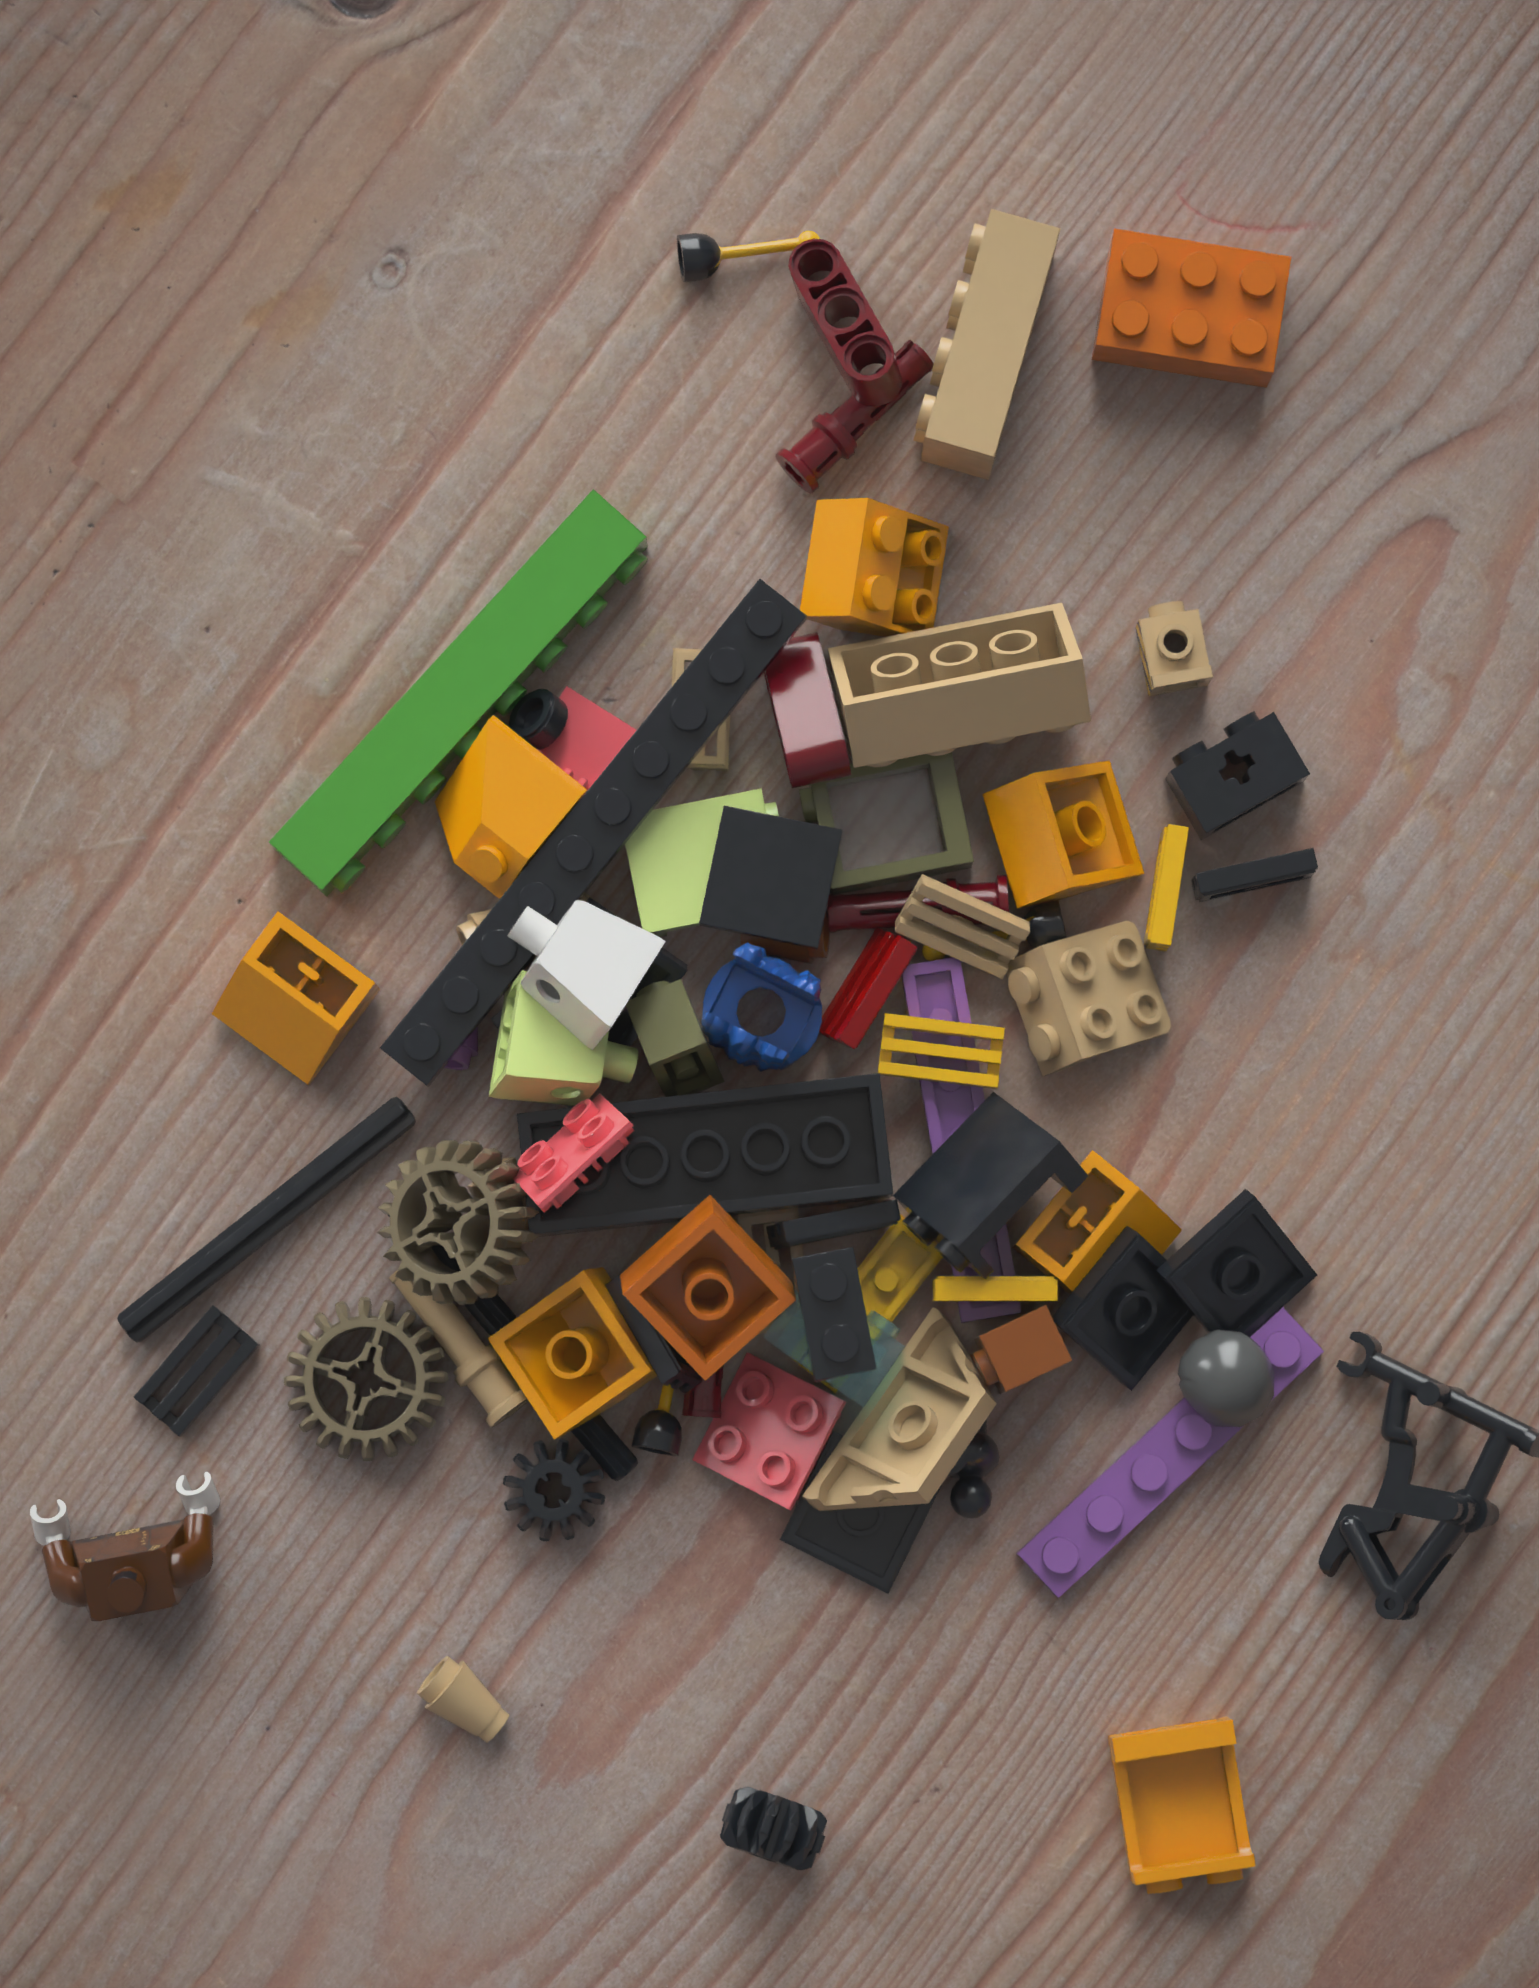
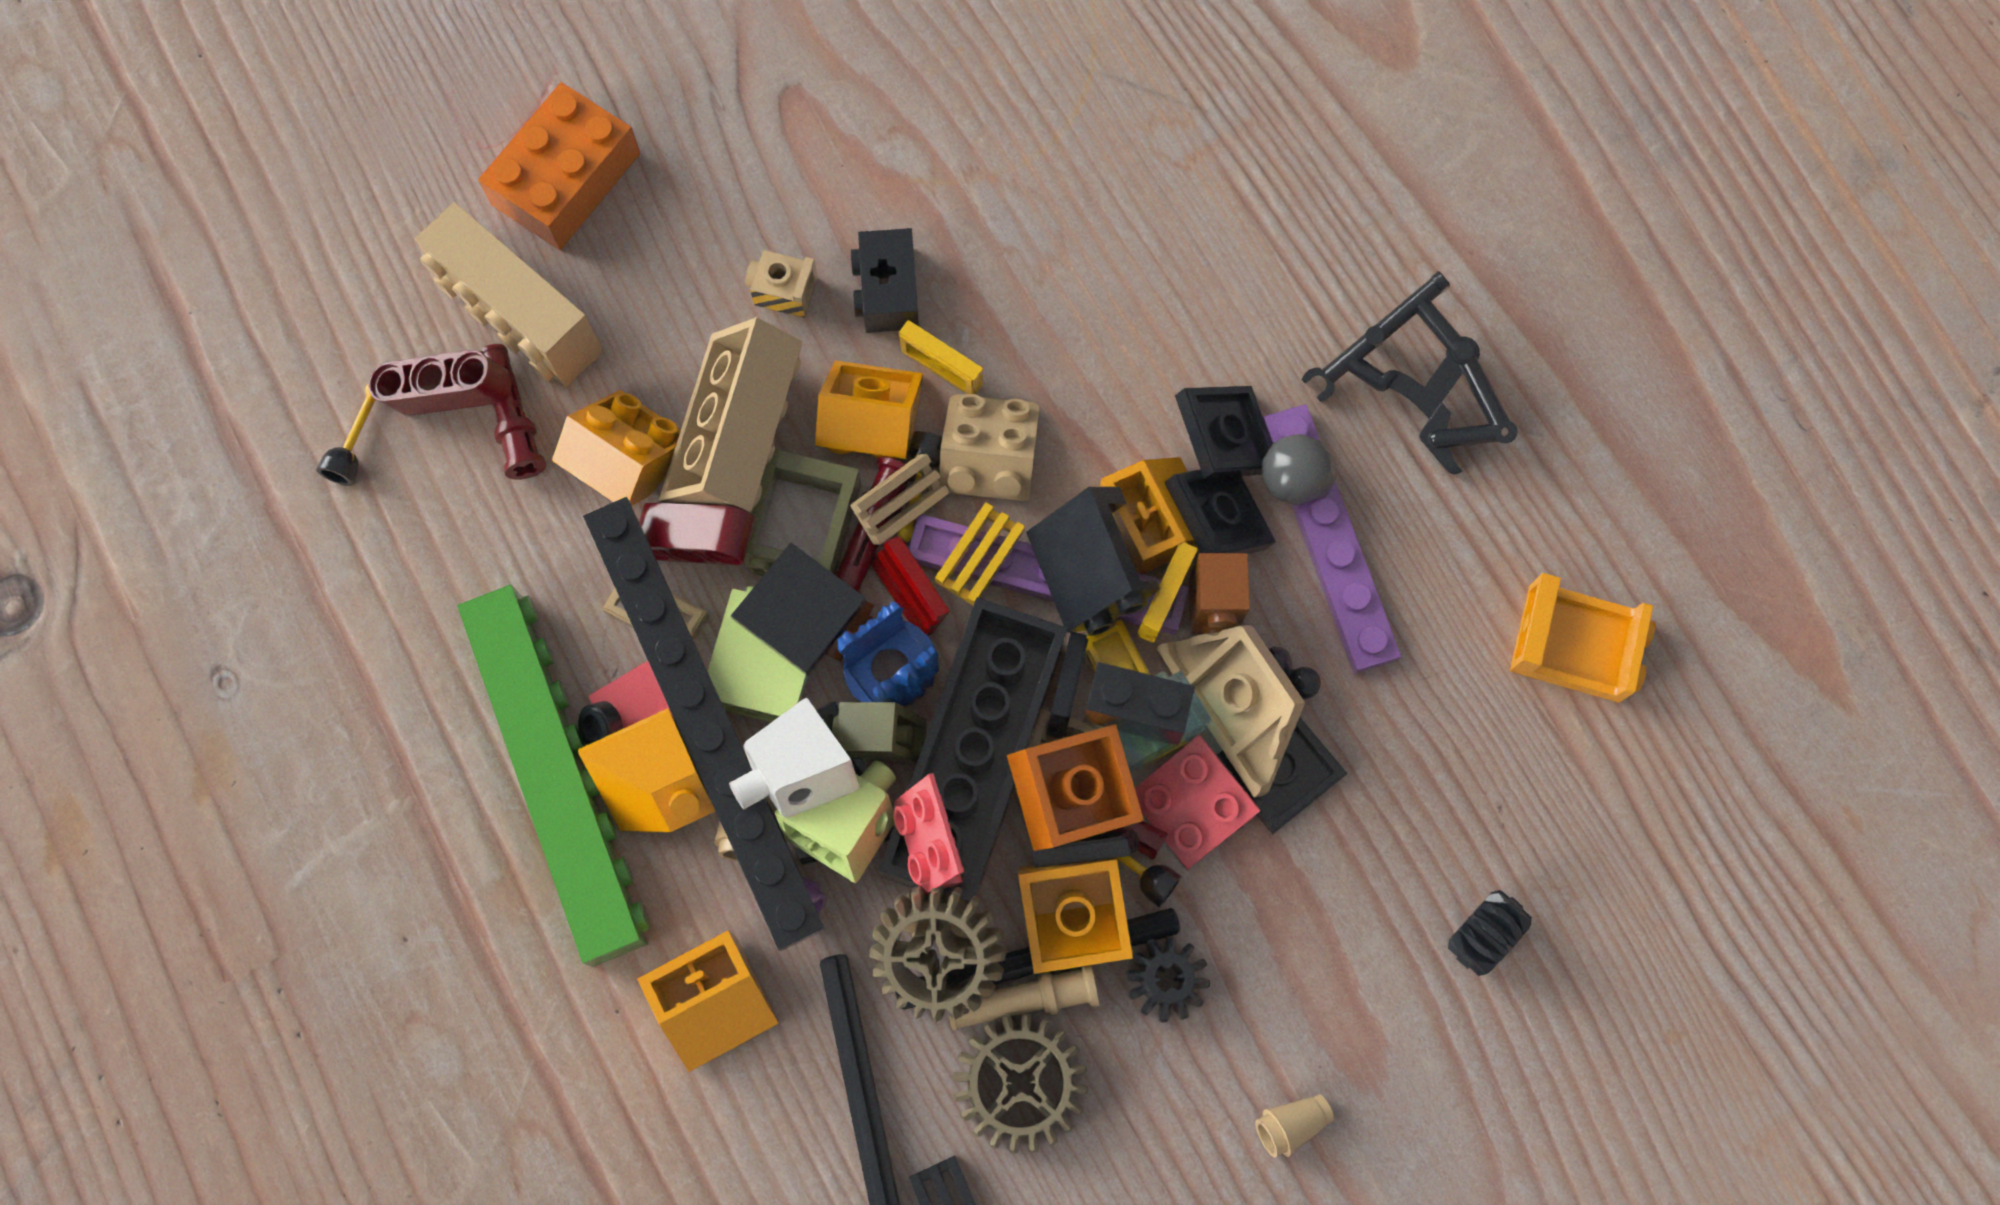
camera: 65 degrees left, 10 degrees down
(1254, 875) = (961, 299): black tile -> none

